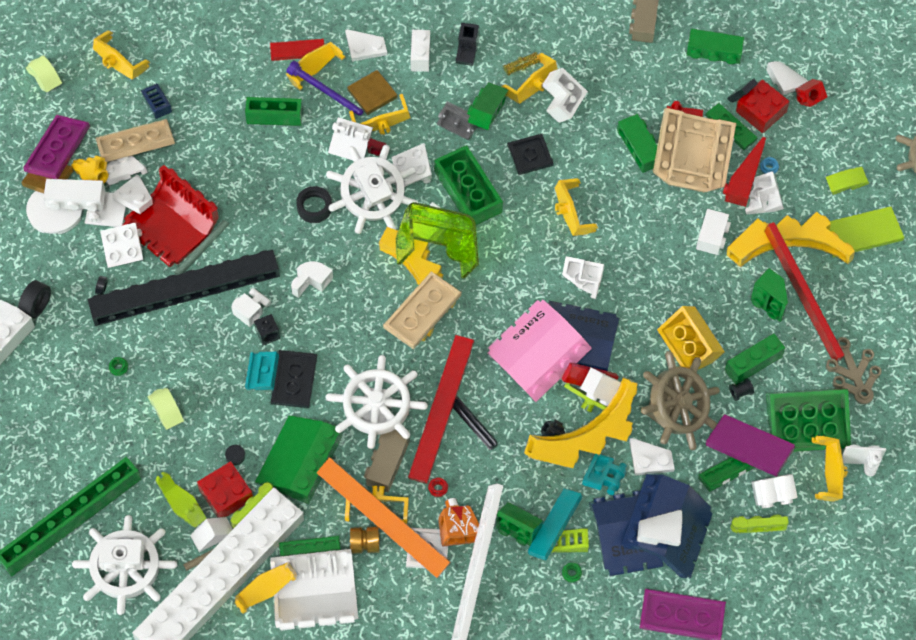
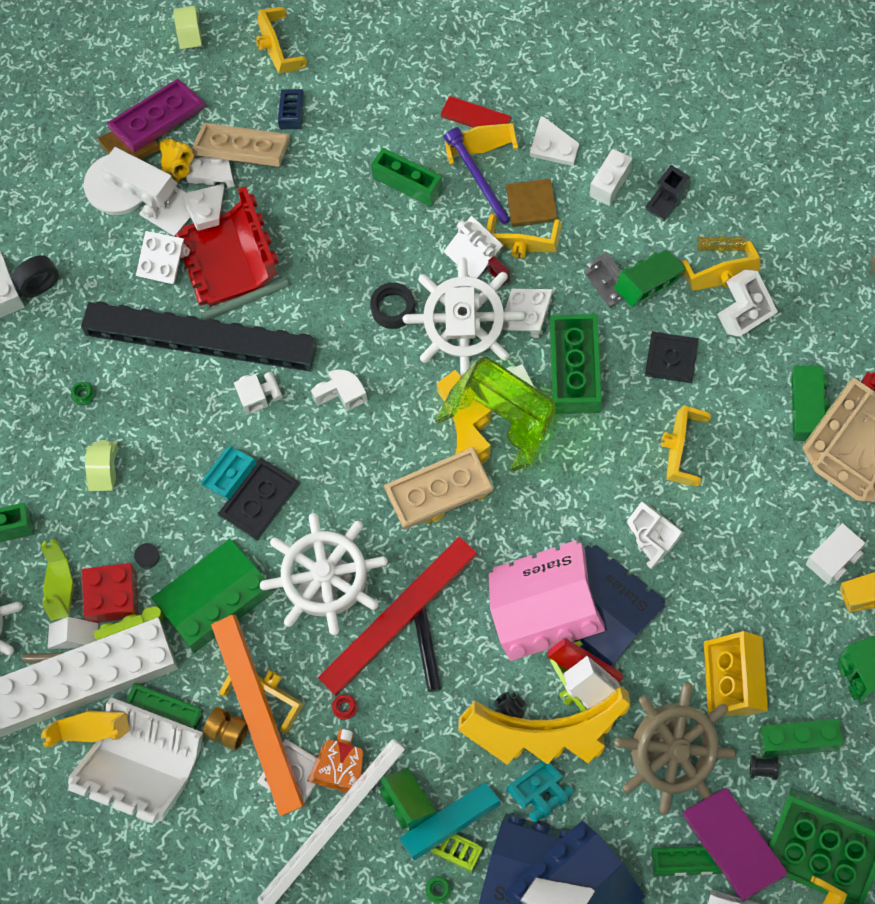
camera: 35 degrees right, 5 degrees up
(101, 285) = (114, 292): black tile -> none
(267, 329) = (258, 428): black brick -> none
(386, 460) = (302, 647): dark tan brick -> none
(650, 458) = (606, 797): white wing -> none

